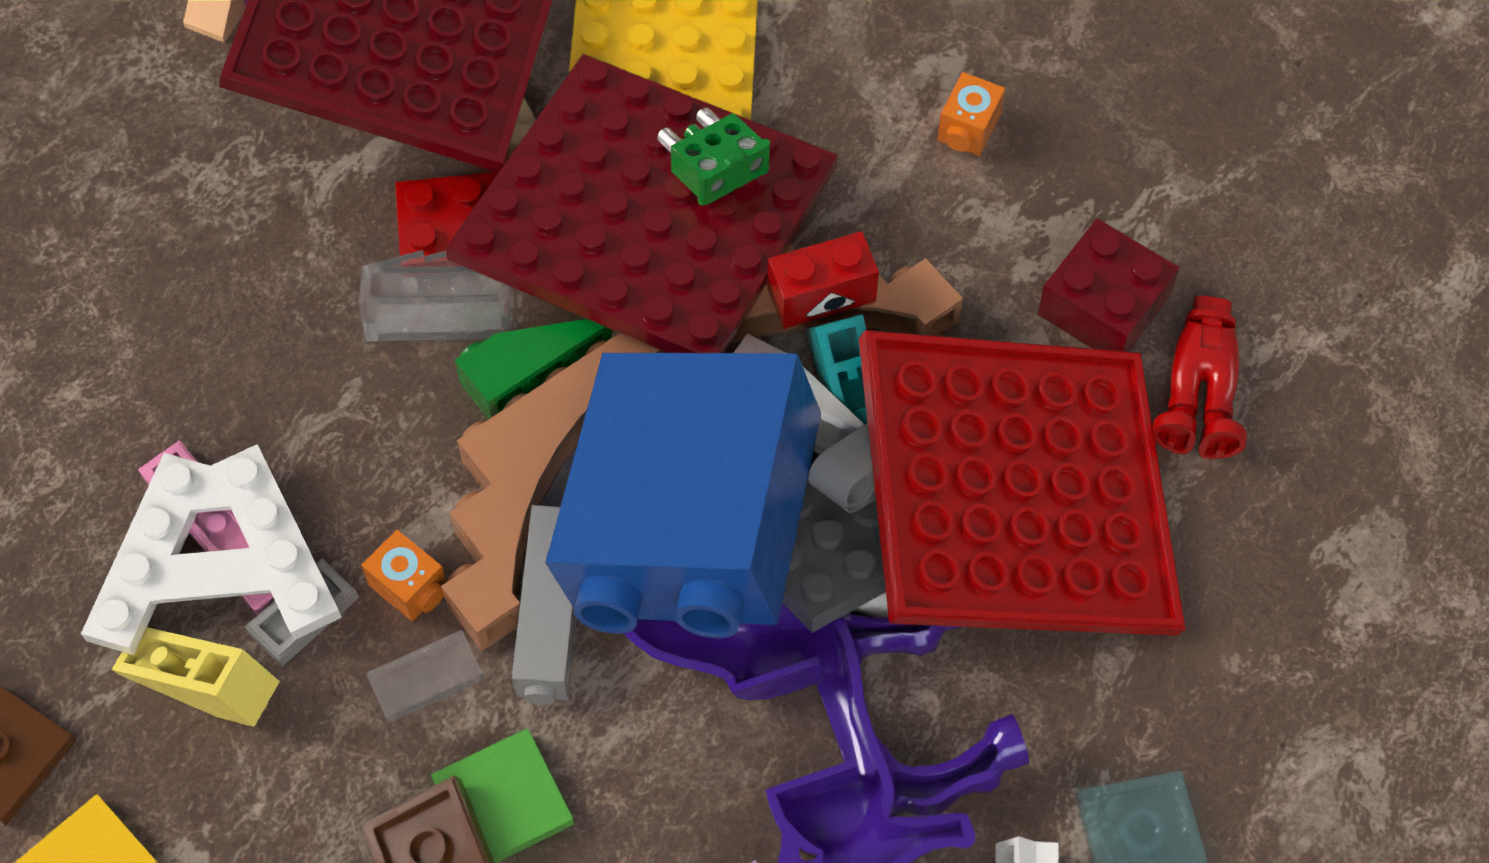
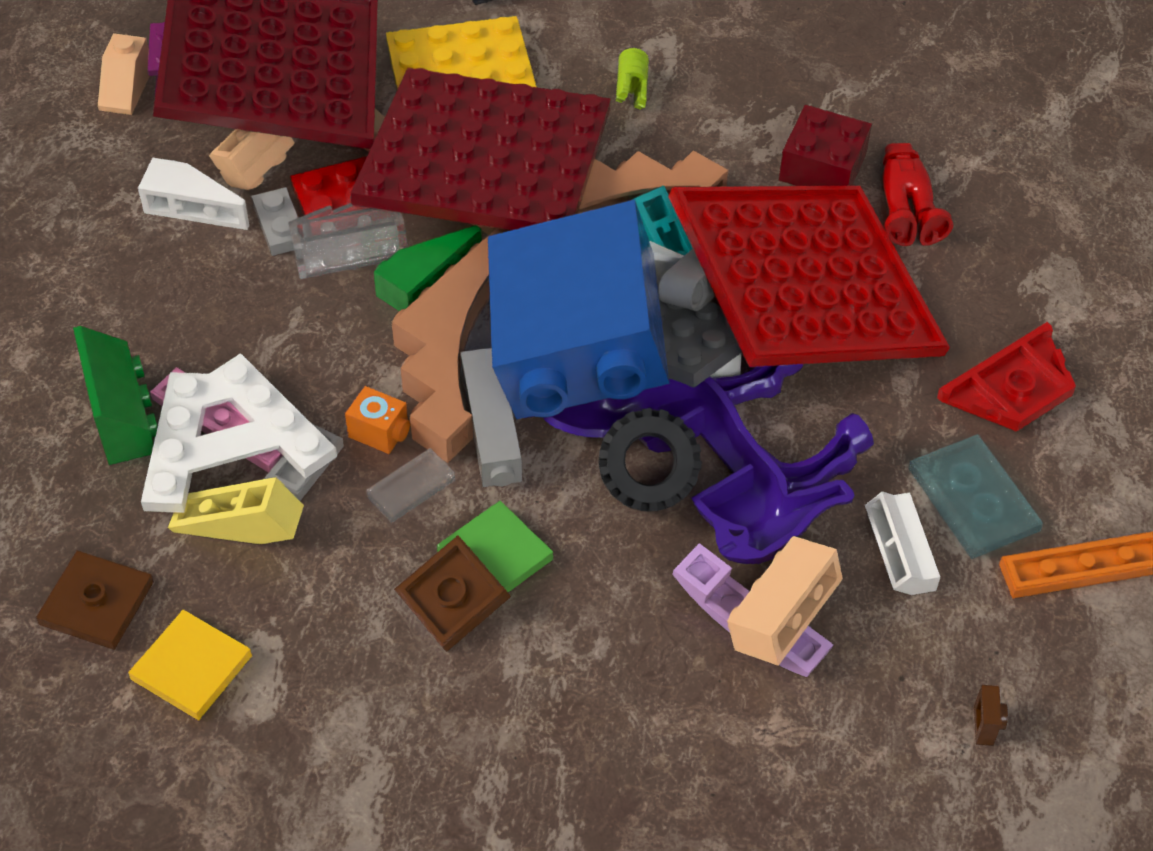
camera: 15 degrees left, 10 degrees down
(86, 470) = (116, 395): none -> green slope
(249, 180) = (187, 194): none -> white slope
(343, 153) = (248, 156): none -> light nougat brick
(362, 239) = (274, 212): none -> light grey plate
(697, 758) = (685, 454): none -> black tyre
(716, 157) = (529, 104): green piece -> none
(822, 279) = (628, 169): red brick -> none
(884, 117) = (633, 76): none -> lime hinge
(970, 114) = (693, 64): orange brick -> none
(1256, 703) = (1014, 383): none -> red wing

